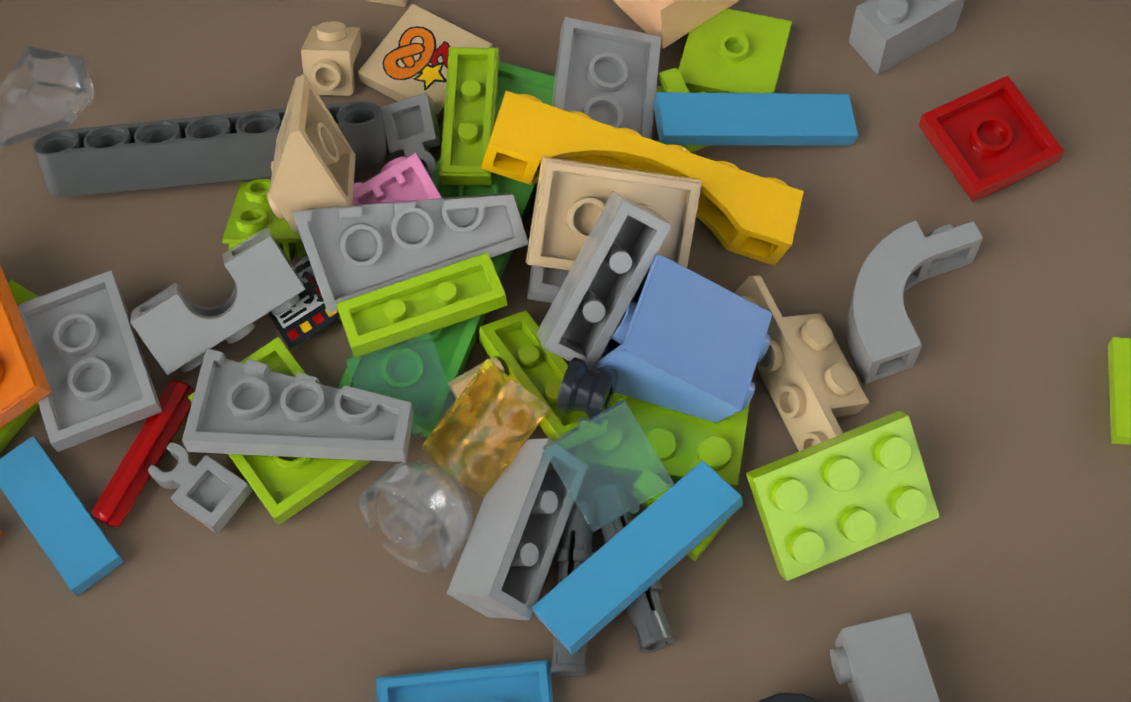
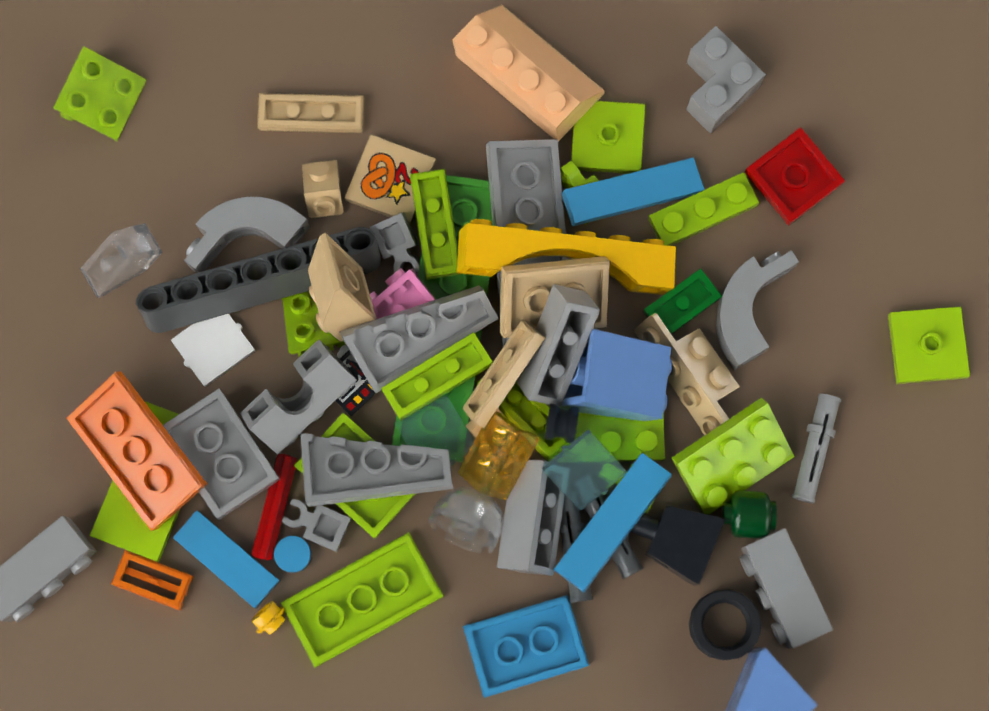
camera: 15 degrees left, 15 degrees up
(88, 609) = (268, 618): none -> yellow plate
(128, 229) = (213, 347): none -> white piece
(152, 525) = (292, 554): none -> dark azure tile
(208, 75) = (244, 218): none -> light grey arch
(234, 611) = (362, 599): none -> lime tile
(515, 309) = (503, 373): none -> tan tile
(740, 607) = (680, 540): none -> black torso
(807, 272) = (685, 301): none -> green plate
(856, 163) = (704, 210): none -> lime plate
(857, 586) = (750, 514): none -> dark green head
(953, 566) = (816, 448): none -> light grey pin

